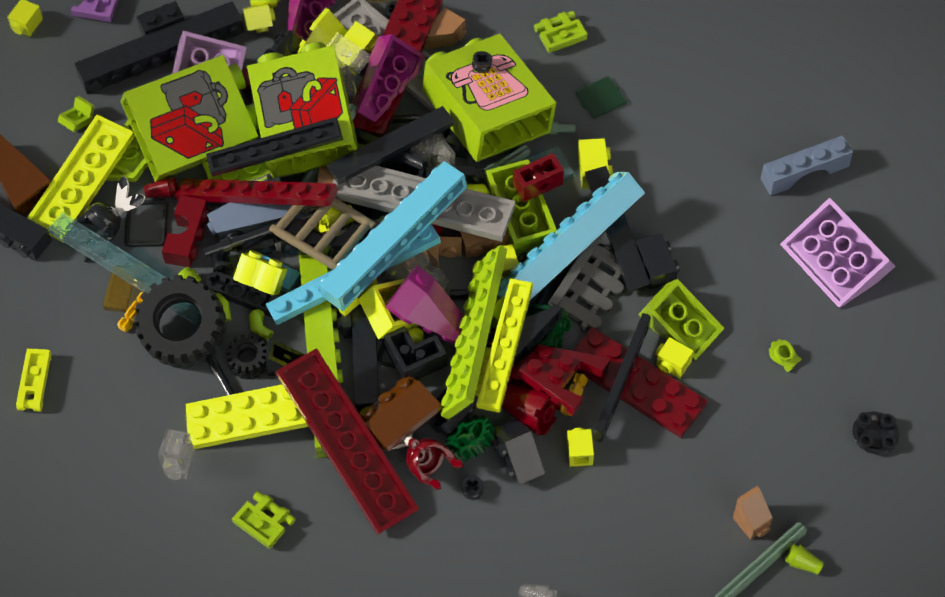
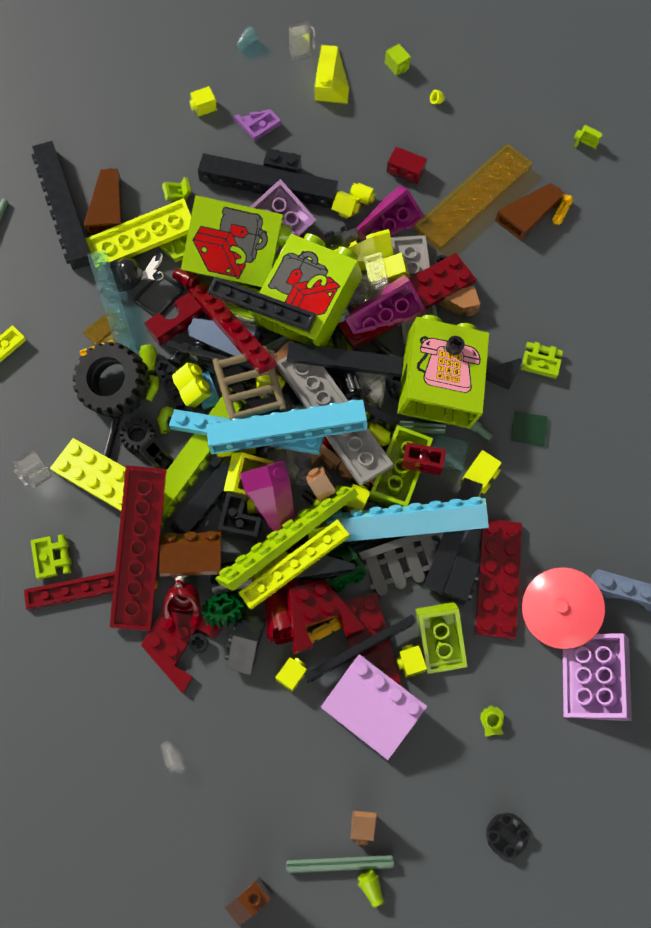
camera: 35 degrees right, 10 degrees up
(311, 533) = (69, 591): none -> dark red tile
(445, 509) = (169, 646): none -> dark red wing
(463, 267) = (321, 483): none -> medium nougat slope
(541, 63) = (503, 374): none -> black slope
(676, 413) = (373, 707): none -> lavender slope
(690, 241) = (498, 580): none -> dark red plate
(762, 218) = (563, 608): none -> coral dish

